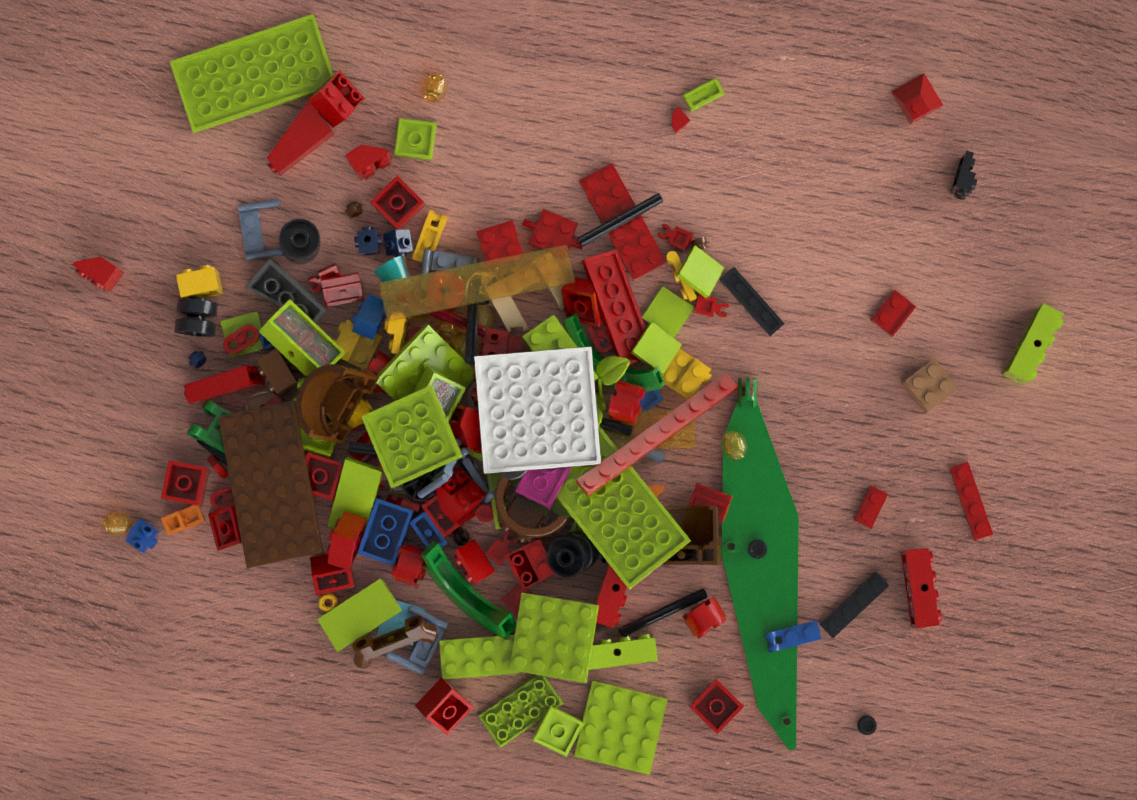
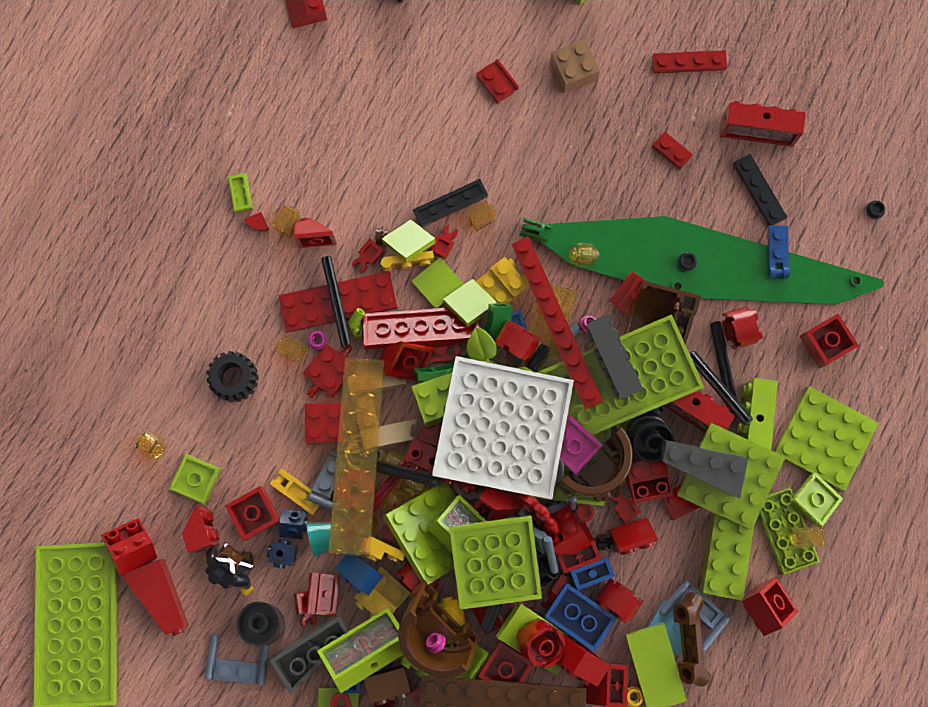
camera: 75 degrees left, 5 degrees down
(325, 403) = (435, 643): none -> dark pink plate
(341, 196) = (228, 568): none -> black torso
(351, 499) = (541, 643): none -> red brick
(464, 596) = (665, 554): green arch -> none
(468, 466) = (539, 513): none -> red plate
(518, 727) = (808, 537): none -> clear yellow brick
(520, 128) = (221, 365): none -> black tyre
(555, 610) = (711, 466): none -> dark grey wedge
(563, 191) = (291, 348): none -> clear yellow brick
(579, 207) = (317, 334): none -> dark pink plate
(604, 245) = (355, 323): none -> lime arm
(633, 495) = (614, 357): none -> dark grey wedge
(641, 605) = (720, 389): none -> black axle
(672, 469) = (583, 322): none -> dark pink plate
(681, 175) = (313, 234): none -> red slope
(688, 148) = (286, 220): none -> clear yellow brick
(747, 335) = (481, 215): none -> clear yellow brick

